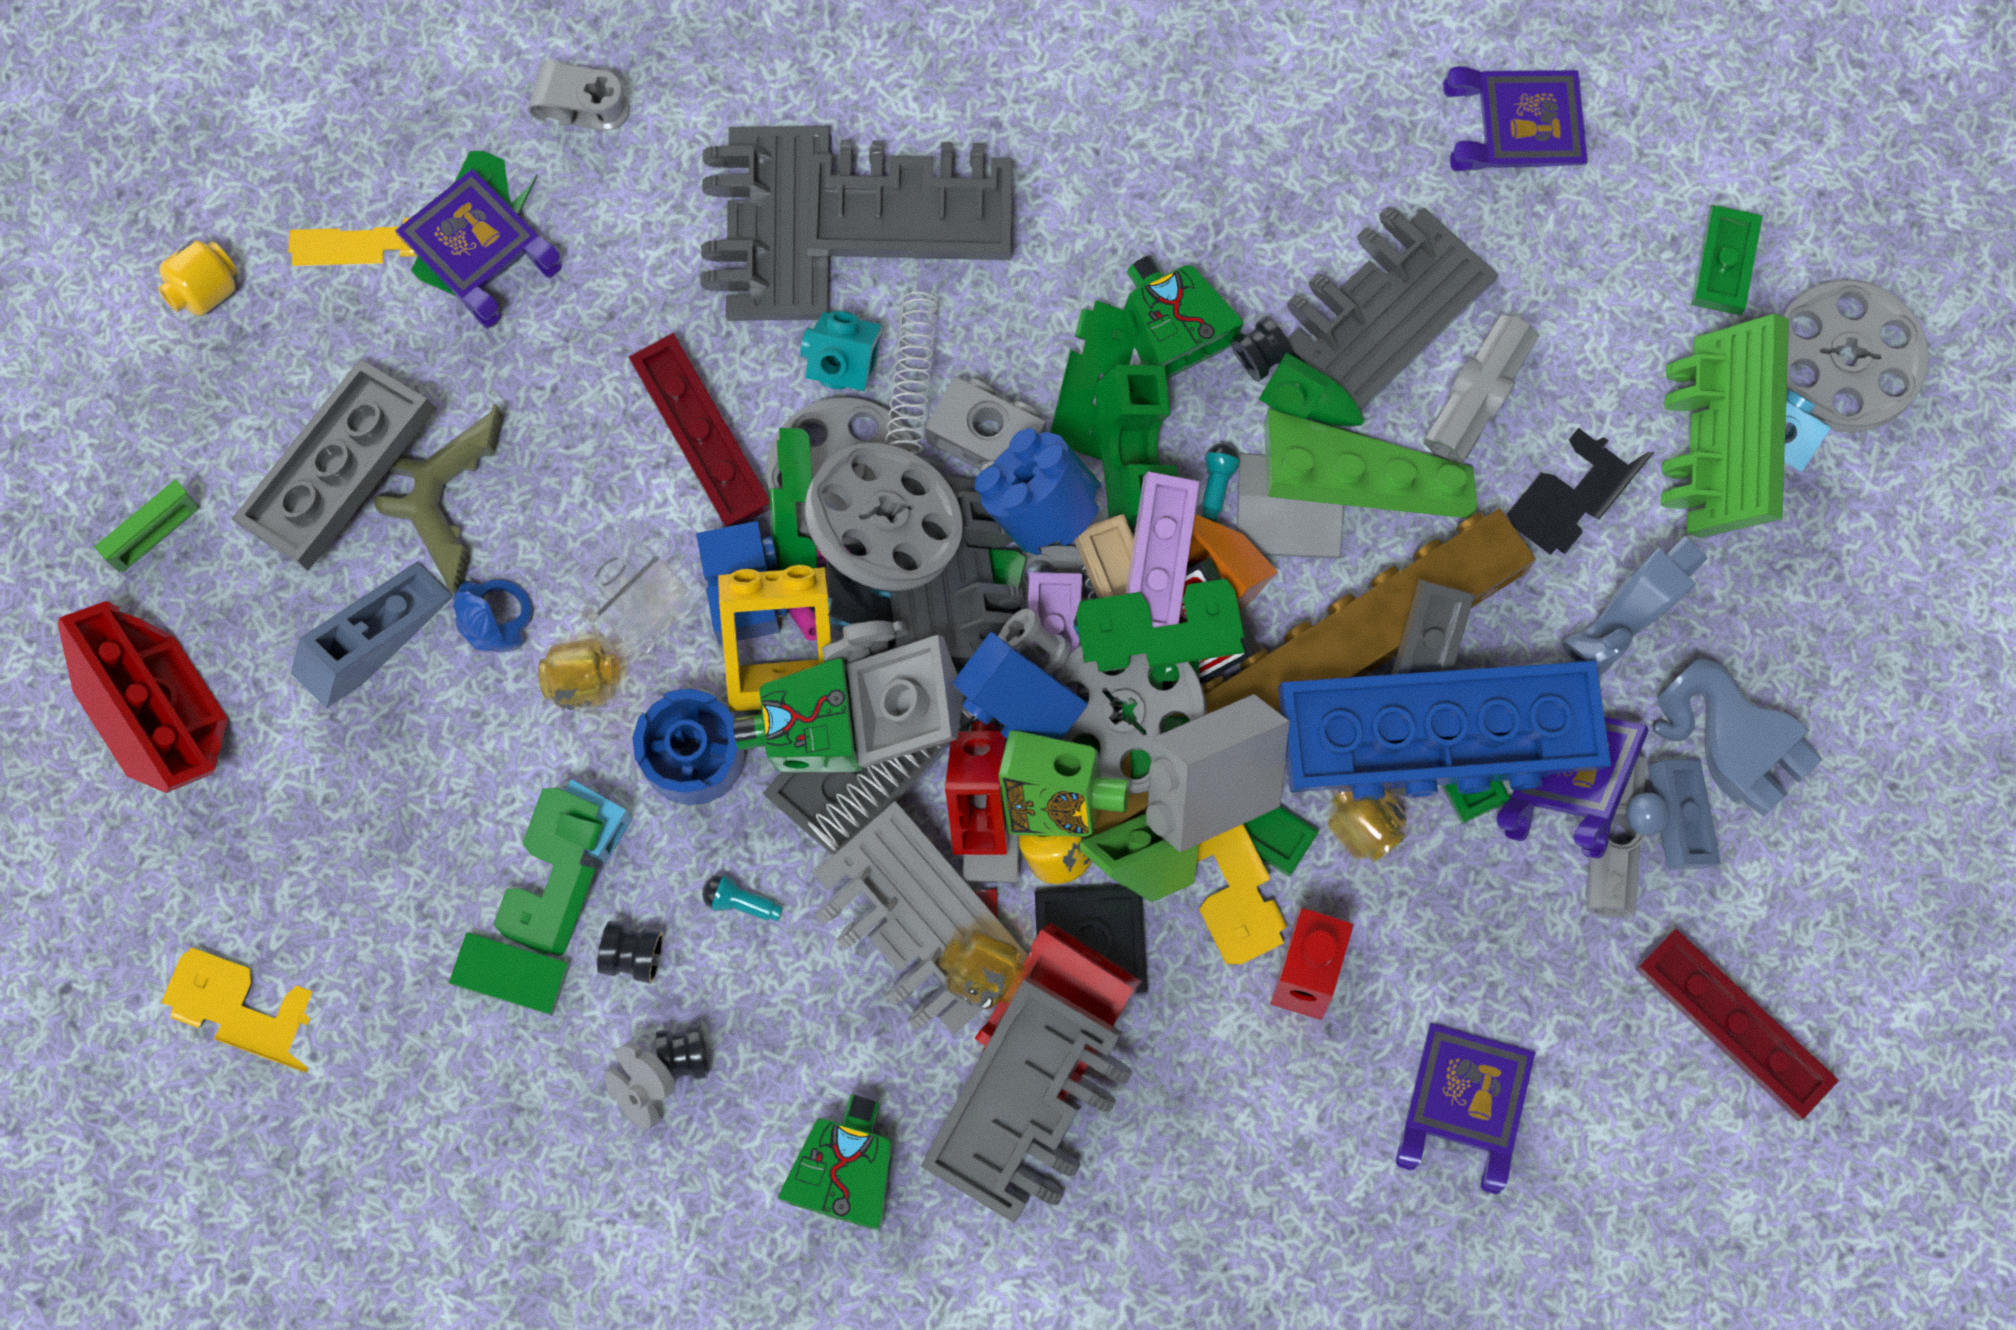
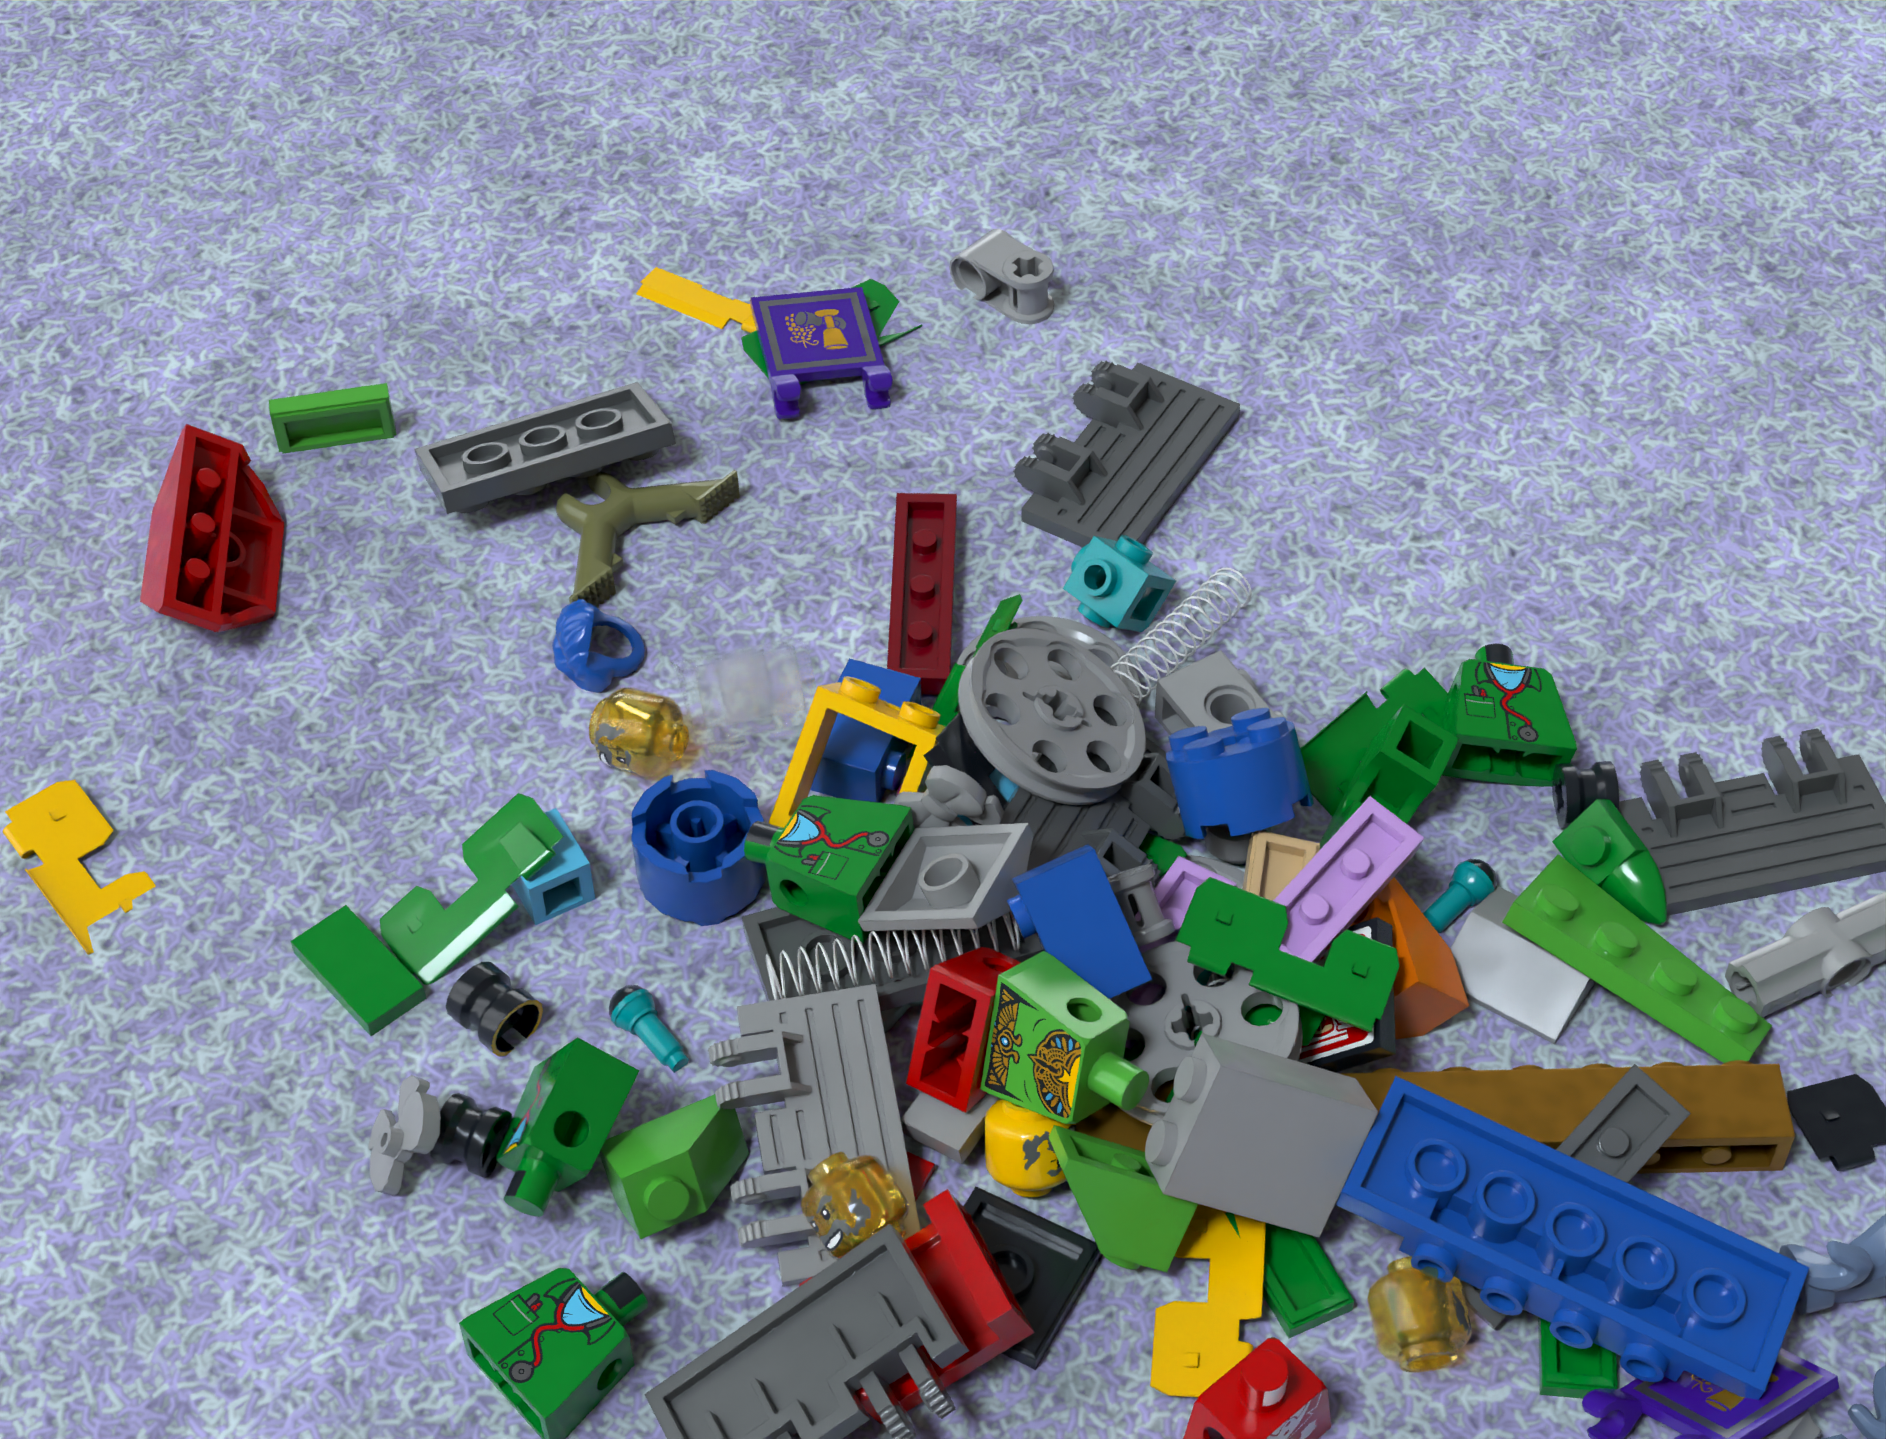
camera: 30 degrees right, 25 degrees down
(197, 277) = (539, 254): yellow head -> none
(366, 634) = (453, 599): sand blue slope -> none
(744, 1019) = (562, 1122): none -> green torso
(833, 999) = (674, 1164): none -> bright green slope
(909, 209) = (1277, 500): dark grey hinge -> none

